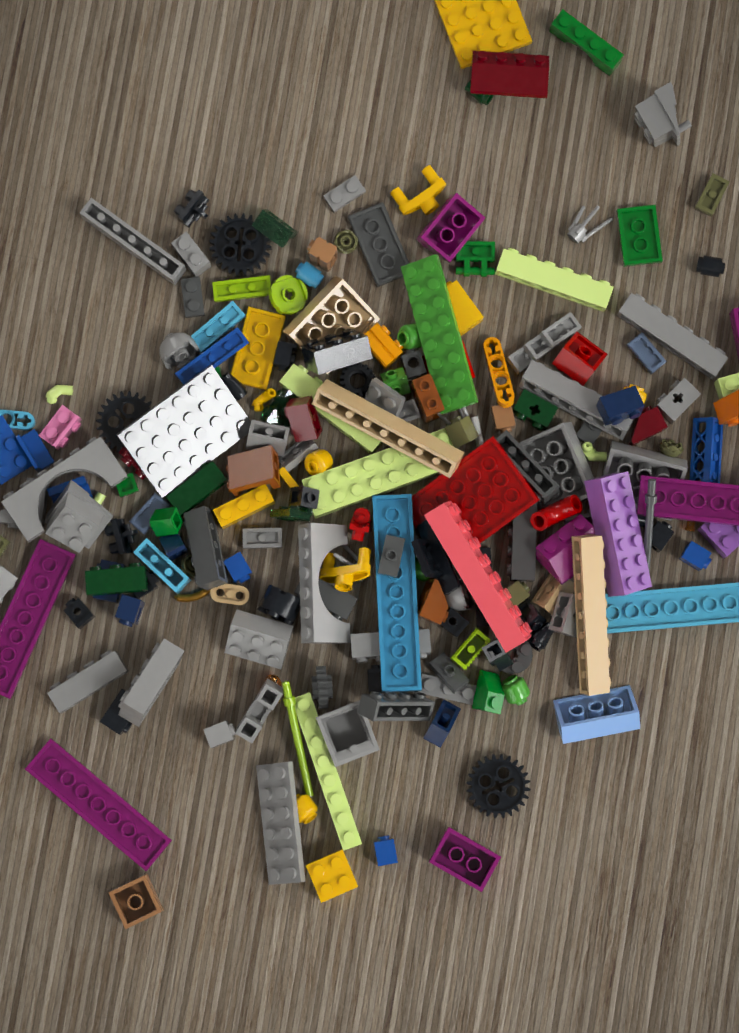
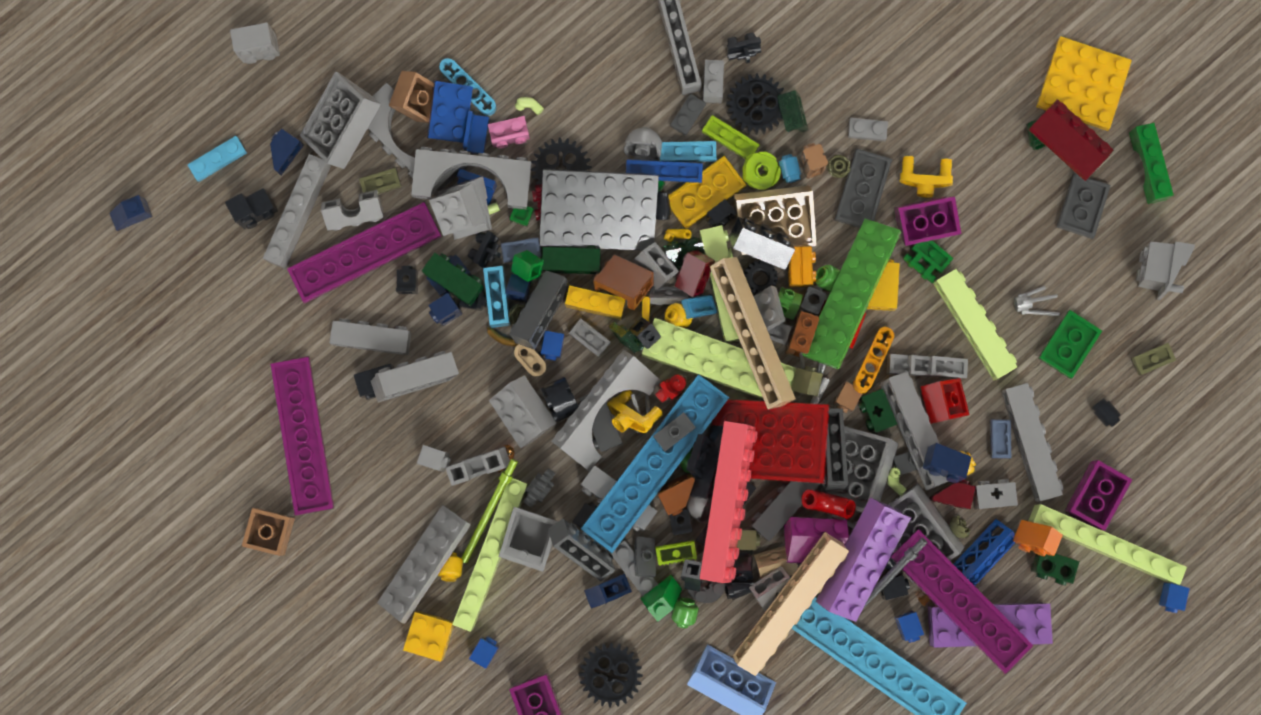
camera: 45 degrees right, 0 degrees up
(328, 442) = (699, 306): none -> dark azure tile
(561, 118) = (1083, 206): none -> dark grey tile

